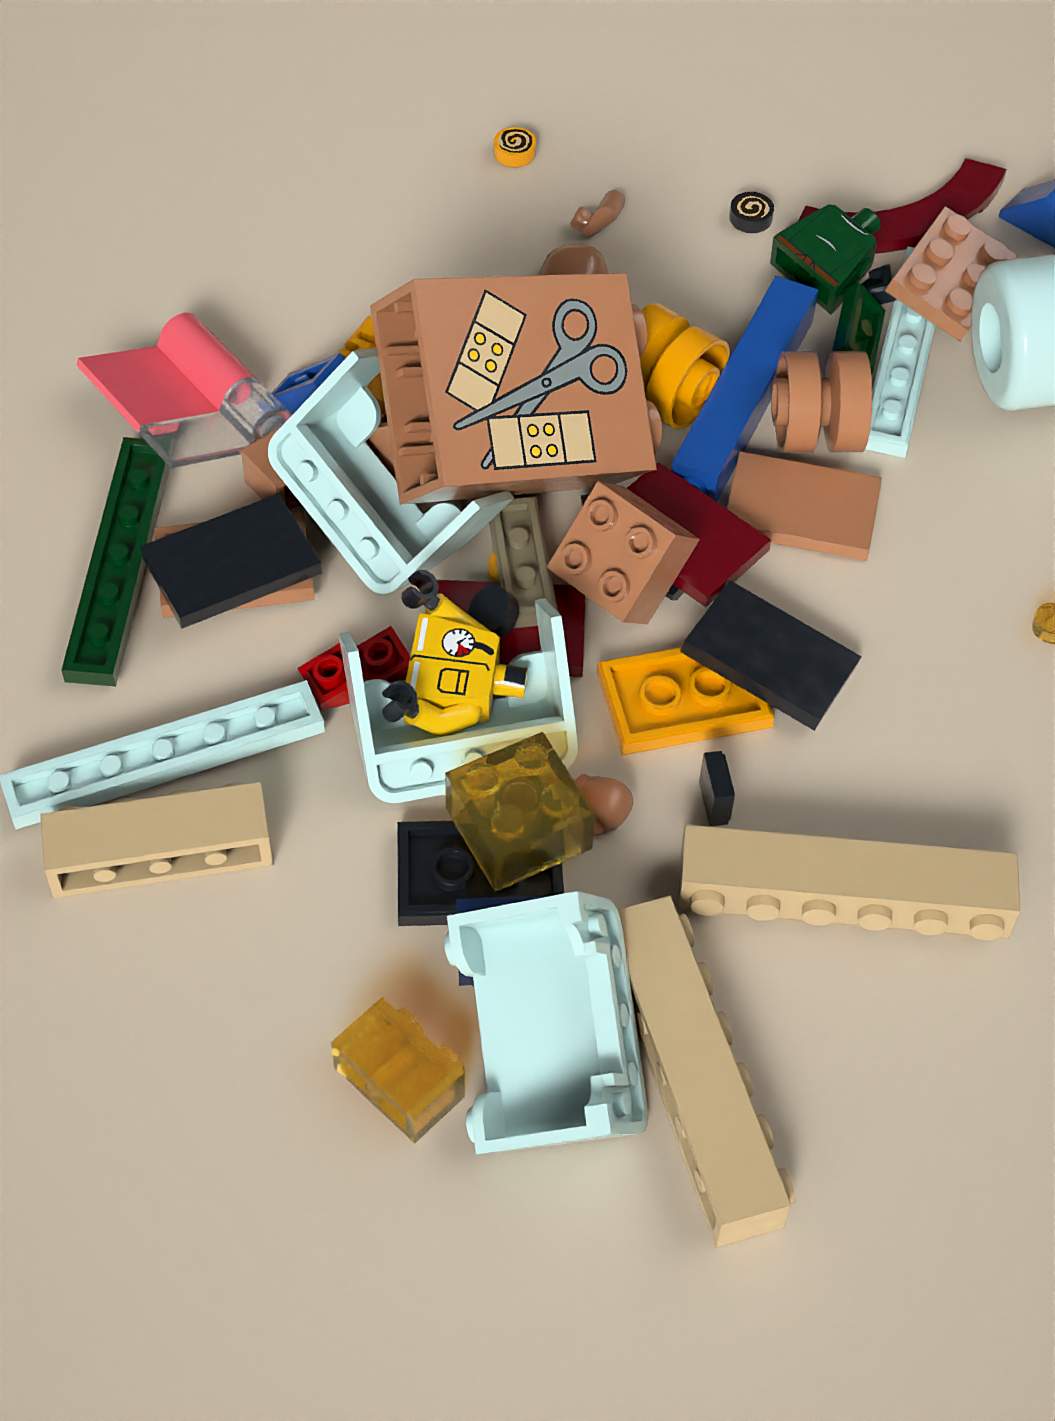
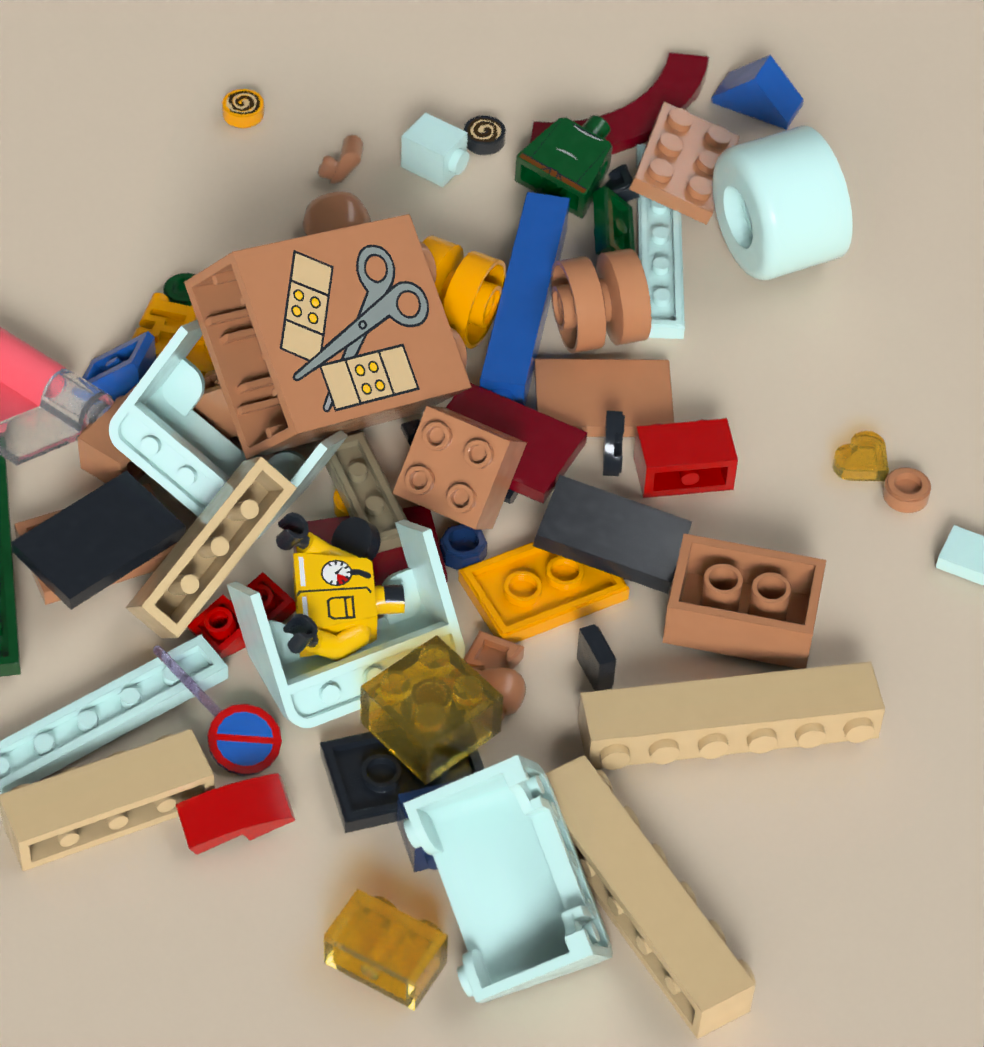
camera: 15 degrees left, 5 degrees down
(285, 878) = (234, 810): none -> red slope
(318, 798) = (239, 737): none -> piece
(337, 590) = (211, 548): none -> tan brick
(607, 759) = (493, 652): none -> nougat tile
(608, 638) = (463, 546): none -> dark blue tile
(694, 218) = (434, 150): none -> light aqua brick
(798, 556) = (613, 443): none -> black tile
(871, 585) = (685, 458): none -> red brick
(893, 756) = (744, 601): none -> nougat brick

